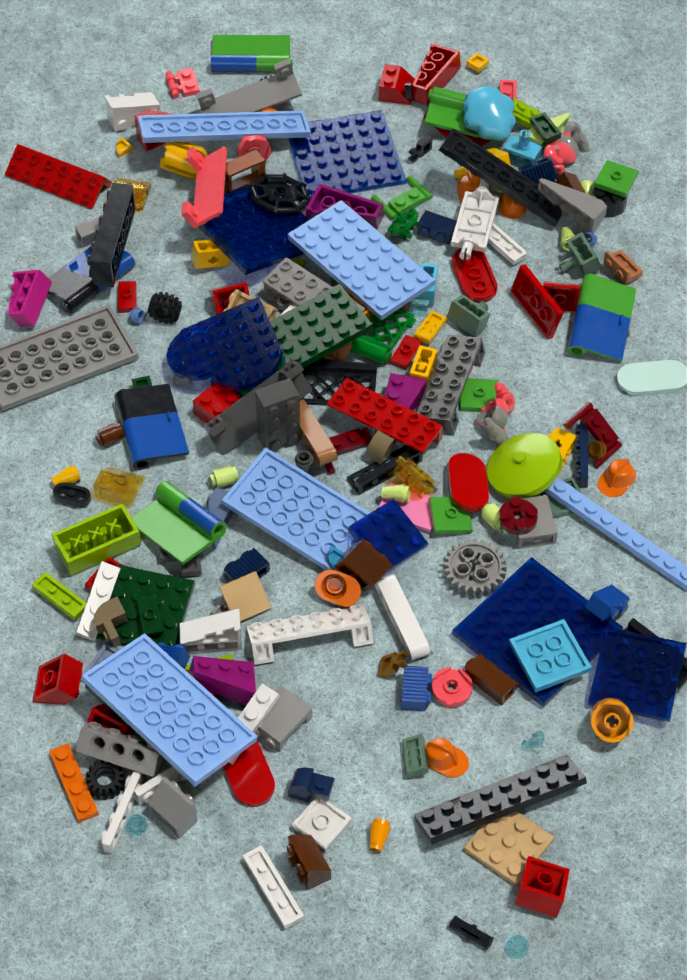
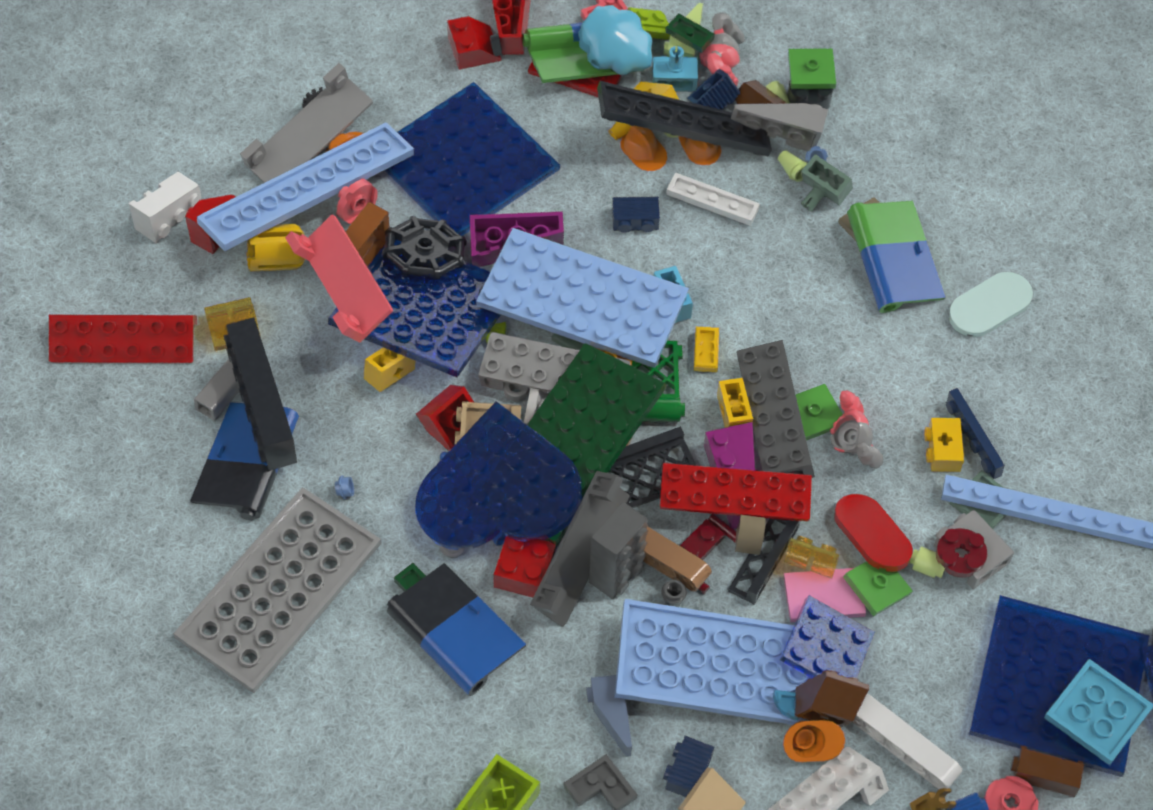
camera: 30 degrees left, 5 degrees up
(28, 296) = (194, 522): dark pink wedge -> none
(68, 475) = (394, 746): yellow cone -> none
(73, 494) = (415, 765): black plate -> none
(109, 434) = (412, 664): reddish brown brick -> none
(118, 486) = (465, 728): clear yellow slope -> none
(123, 147) = (181, 261): yellow tile -> none
(127, 296) = (315, 465): red plate -> none
(164, 307) = (378, 462): black tyre -> none
(178, 523) = (575, 747): door -> none
(187, 80) = (207, 136): coral plate -> none
(224, 476) = (586, 656): yellowish green brick -> none
(249, 52) = (265, 67): bright green door -> none
(397, 492) = (803, 585): yellowish green cone -> none
(403, 223) = (595, 224): green plate -> none
(405, 201) = (575, 194): bright green plate -> none
(405, 352) = (696, 393): red plate -> none
(419, 307) = (681, 328): clear light blue plate -> none
(422, 147) = (553, 112): black plate -> none
(457, 562) = (966, 635): light grey gear -> none
(469, 315) = (745, 314): sand green brick -> none
(475, 220) = (679, 188): white plate -> none
(475, 276) = (713, 257): red tile -> none
(524, 465) = (926, 483): lime dish -> none
(536, 301) = (813, 264): red tile -> none
(564, 294) = (831, 244): red slope -> none
(597, 449) = (991, 424): pearl gold plate -> none
(598, 428) = (980, 399): dark red plate -> none
(608, 602) = (1121, 615): blue brick -> none
(617, 478) = (1027, 450): orange piece -> none
(622, 266) = (875, 177): nougat bracket -> none

